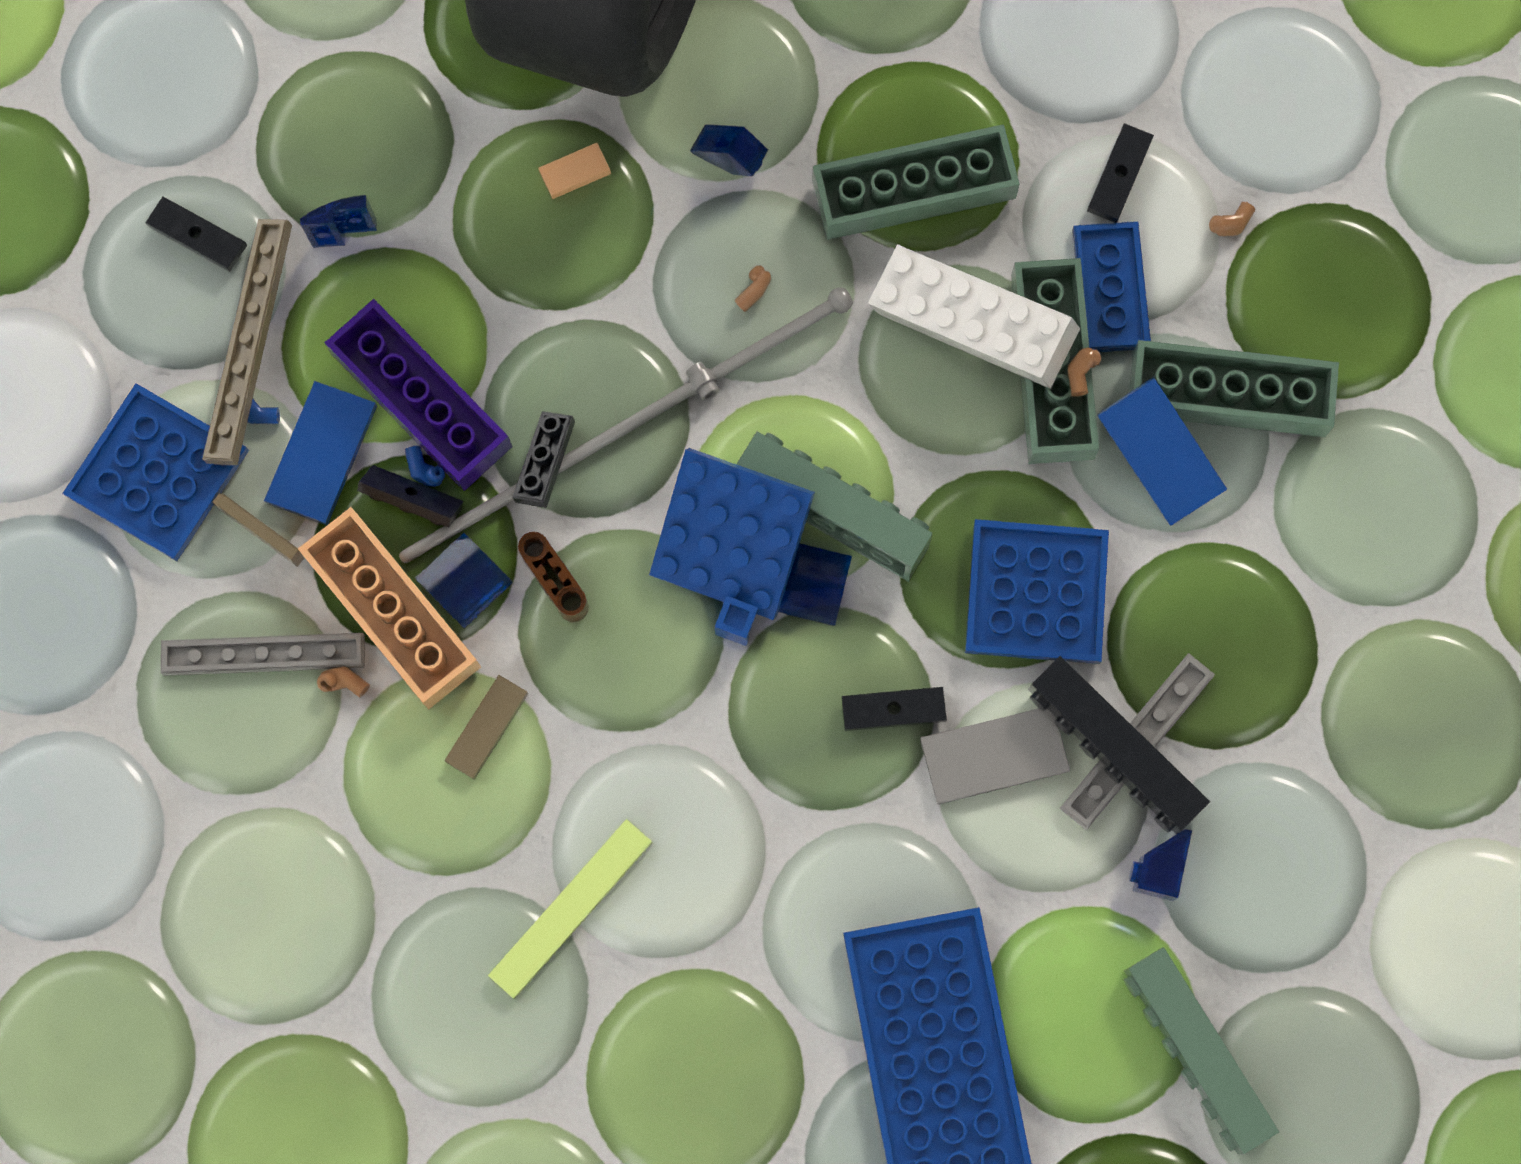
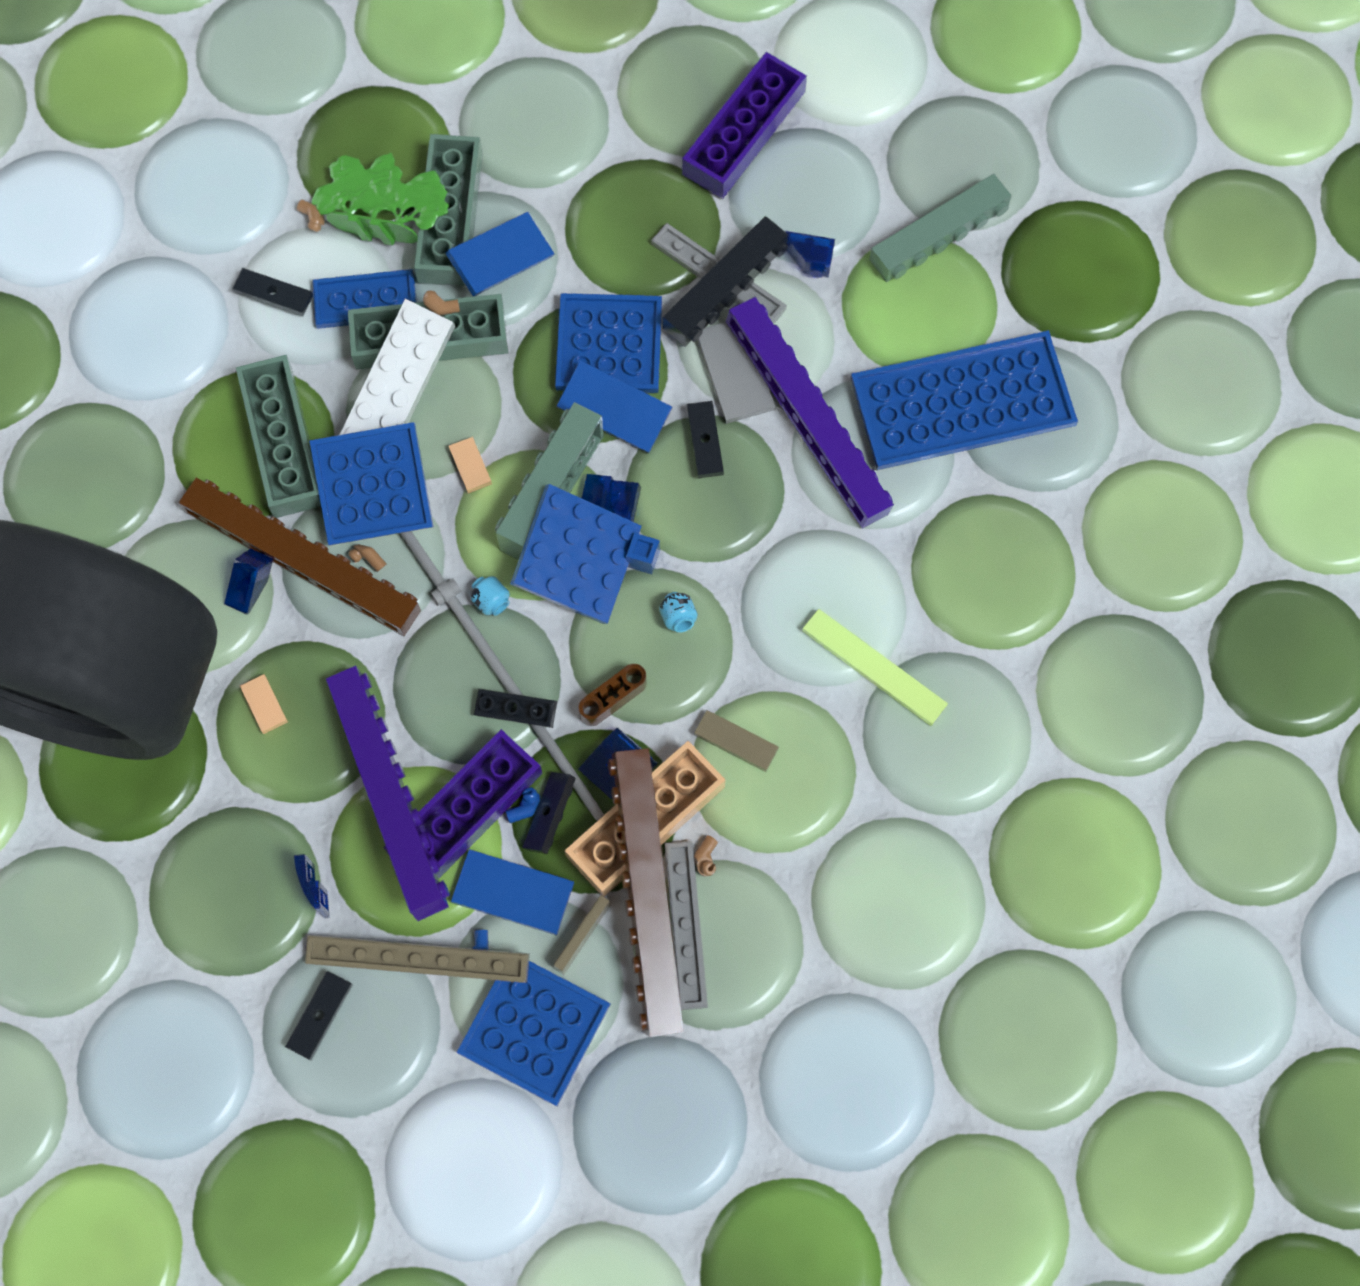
camera: 95 degrees left, 5 degrees down
(291, 599) = (646, 893): none -> brick
(437, 301) = (387, 793): none -> dark purple brick
(656, 661) = (678, 612): none -> medium azure head
(693, 431) = (490, 595): none -> medium azure head
(756, 209) = (300, 556): none -> reddish brown brick
(837, 286) = (371, 483): none -> blue plate
(873, 413) = (470, 465): none -> light nougat tile
(925, 844) = (809, 412): none -> dark purple brick
(941, 593) = (623, 408): none -> blue tile
(1256, 297) = (379, 190): none -> bright green plant
(1362, 786) = (744, 125): none -> dark purple brick

